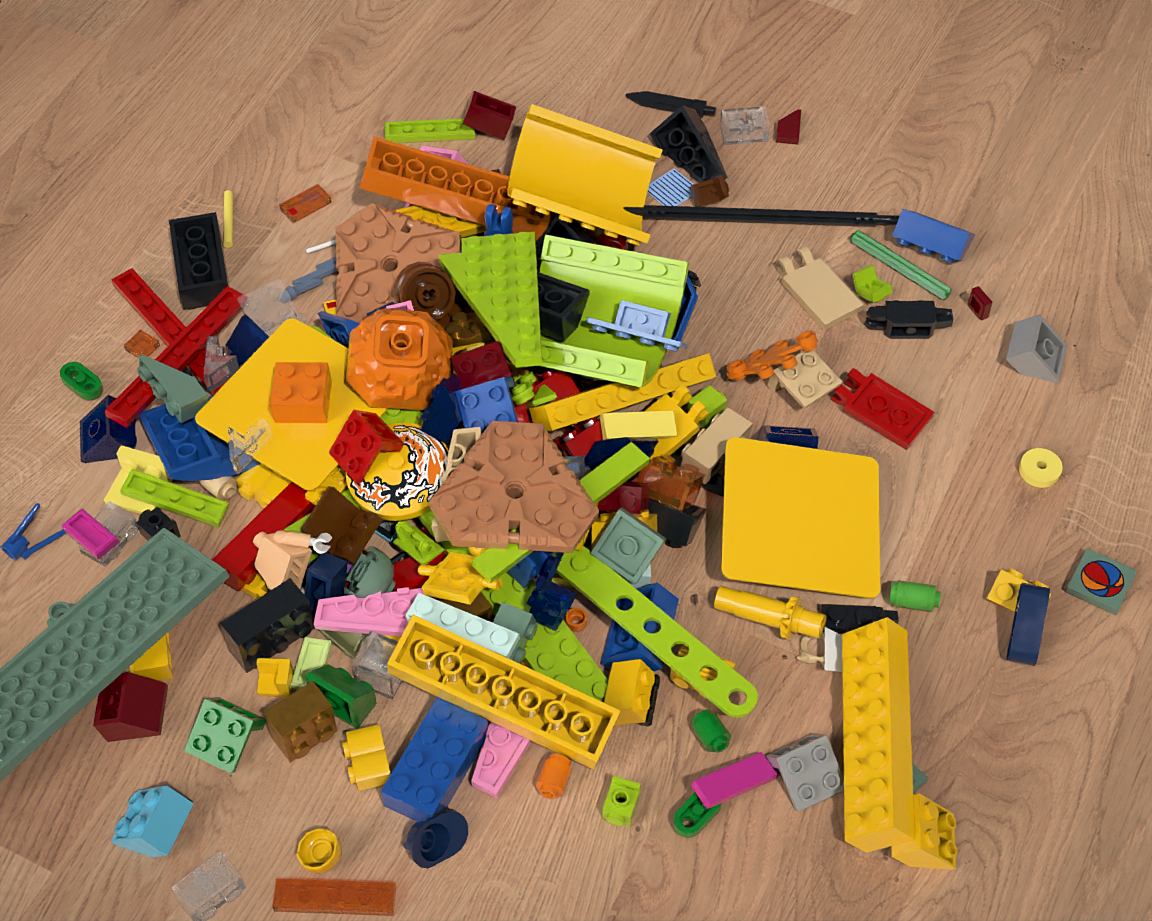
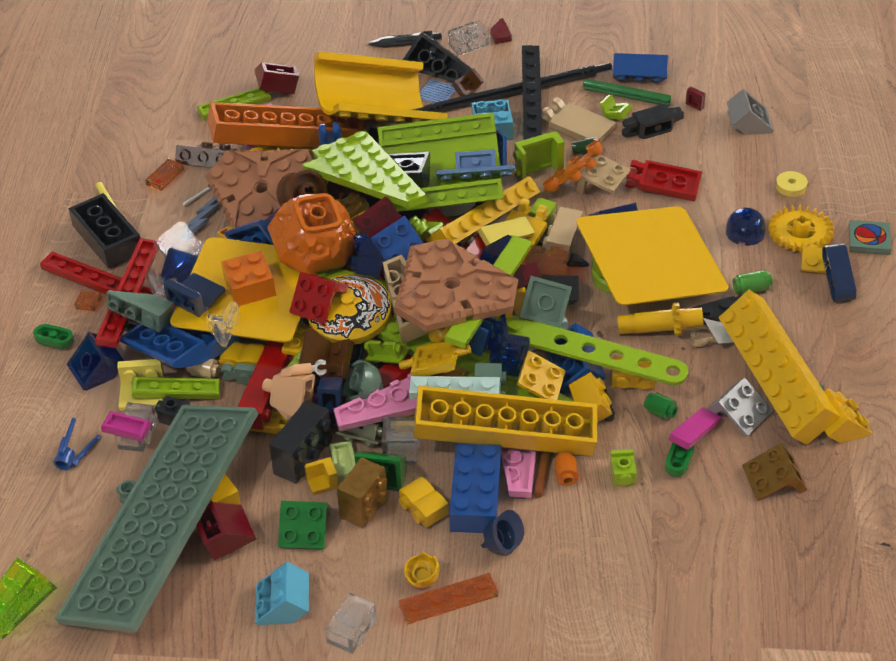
camera: 20 degrees left, 10 degrees down
(235, 390) = (194, 294): none -> dark blue bracket
(251, 501) = (241, 372): none -> sand green plate
(348, 191) = (201, 155): none -> reddish brown bracket
(524, 772) = (541, 475): none -> dark orange bar
(579, 644) = (540, 376): none -> yellow bracket
(713, 253) = (502, 115): none -> medium azure slope
(738, 323) = (539, 154): none -> lime panel
(775, 238) = (531, 91): none -> black plate
(801, 879) = (772, 472): none -> pearl gold bracket
(803, 324) = (580, 146): none -> dark green cone
(948, 512) = (746, 226): none -> clear blue cylinder
(1016, 539) = (804, 225): none -> yellow gear

